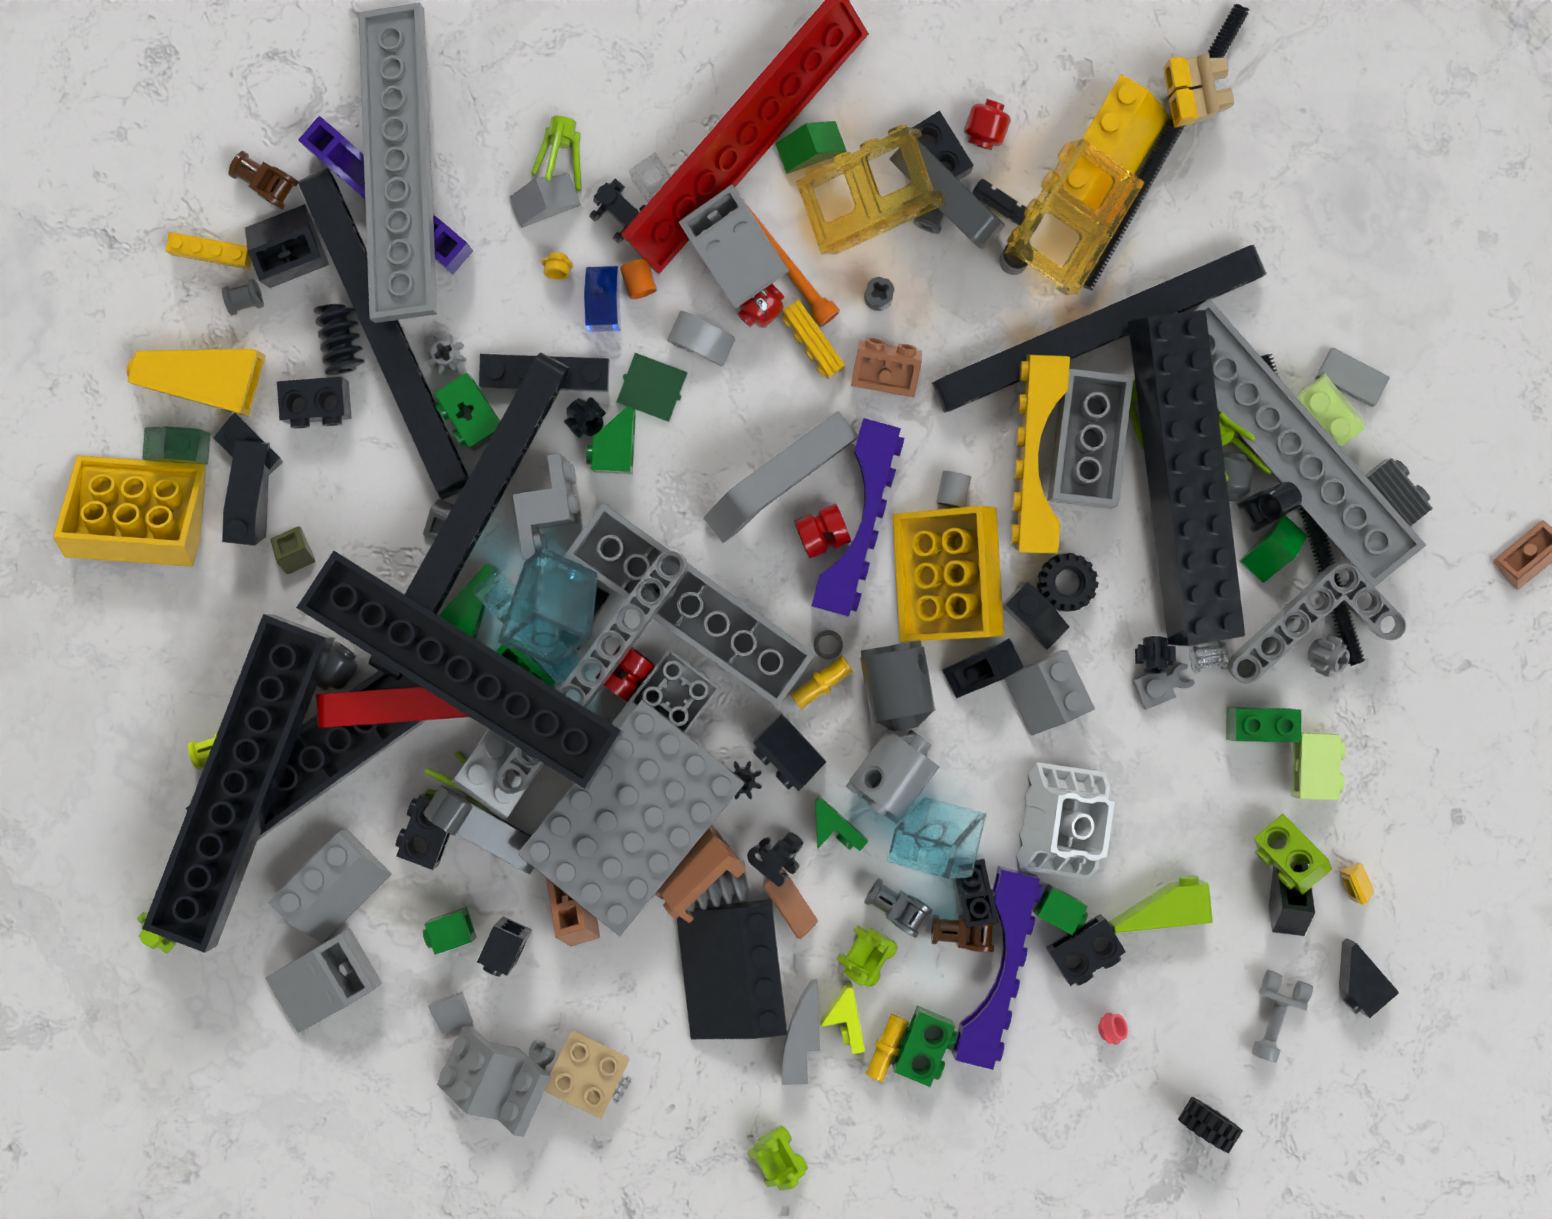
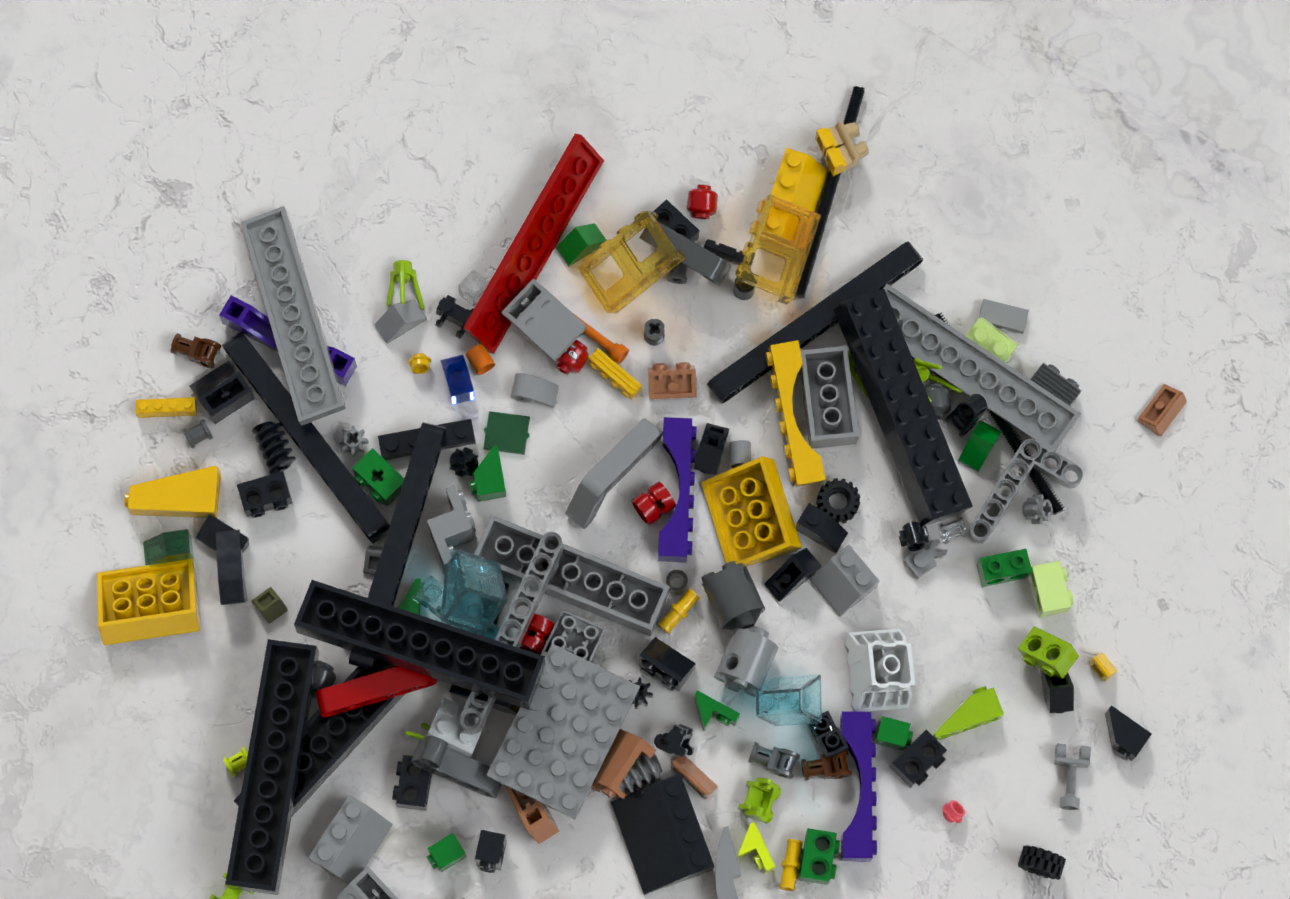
camera: 20 degrees left, 15 degrees down
(917, 473) = (711, 449): none -> black slope

